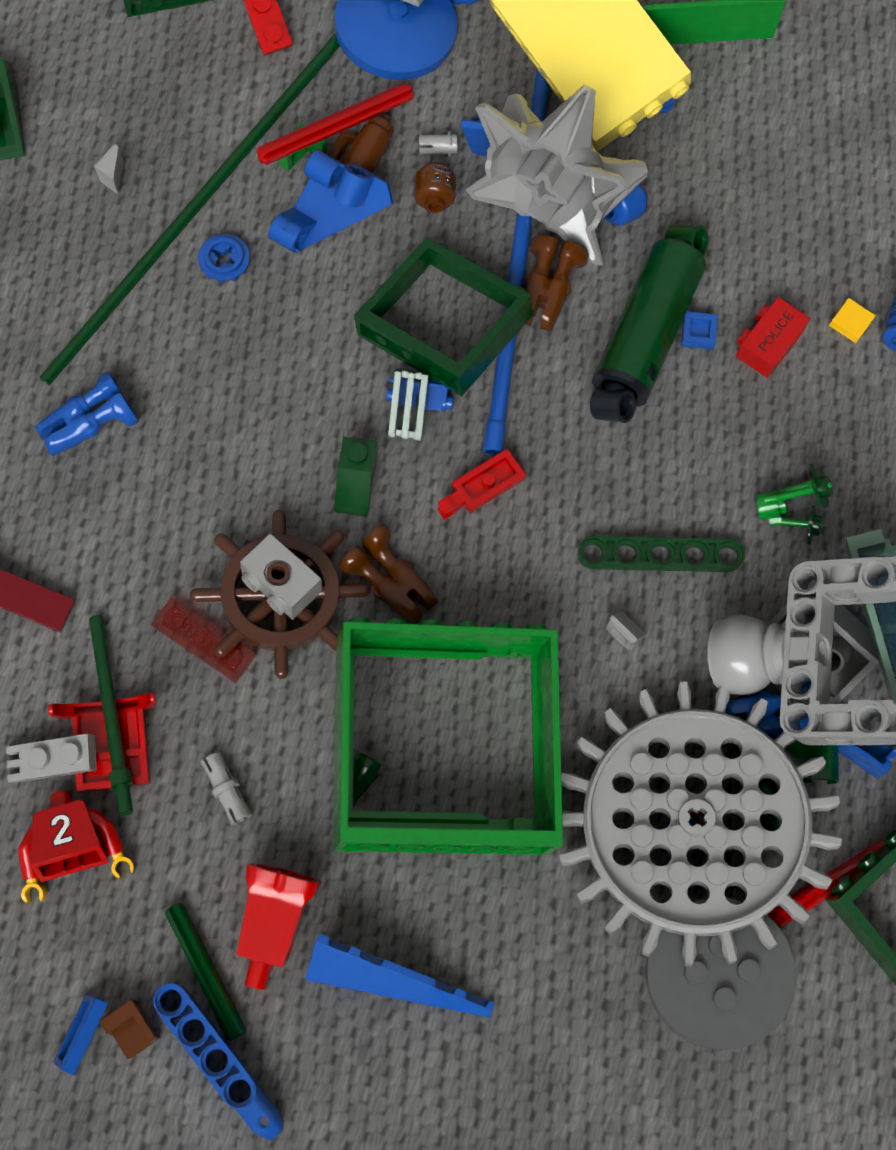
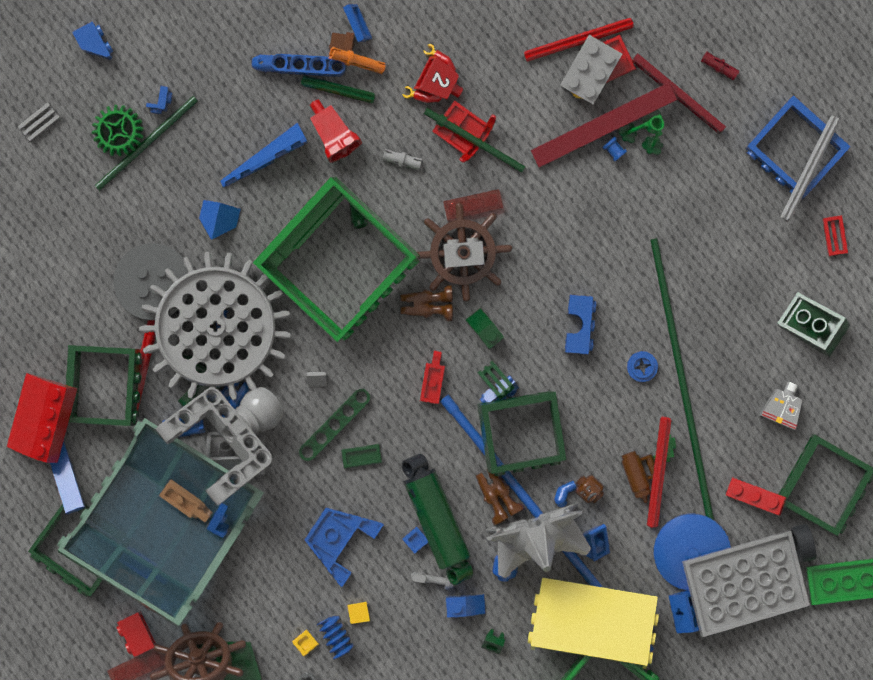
camera: 135 degrees right, 15 degrees up
(52, 758) = (476, 102): light grey hinge -> none
(72, 422) = (616, 235): blue piece -> none
(110, 168) = (732, 354): light grey slope -> none
(122, 64) = (783, 407): none -> light grey torso
(142, 990) = (349, 58): none -> orange pin
(259, 350) = (581, 307): none -> blue arch
(331, 201) = (625, 435): blue panel -> none
(438, 144) = (613, 511): light grey pin -> none
(470, 217) = (562, 492): none -> blue arm
(545, 966) = (218, 218): none -> blue slope
(665, 486) = (361, 456): none -> dark green tile
(718, 208) = (465, 605): none -> blue slope
(725, 140) = (493, 643): none -> dark green tile
(738, 281) = (422, 578): none -> light grey hinge
(771, 337) = (382, 567): red brick -> none
(774, 503) = (310, 491): green plant -> none
(797, 431) = (332, 534): none -> blue wing

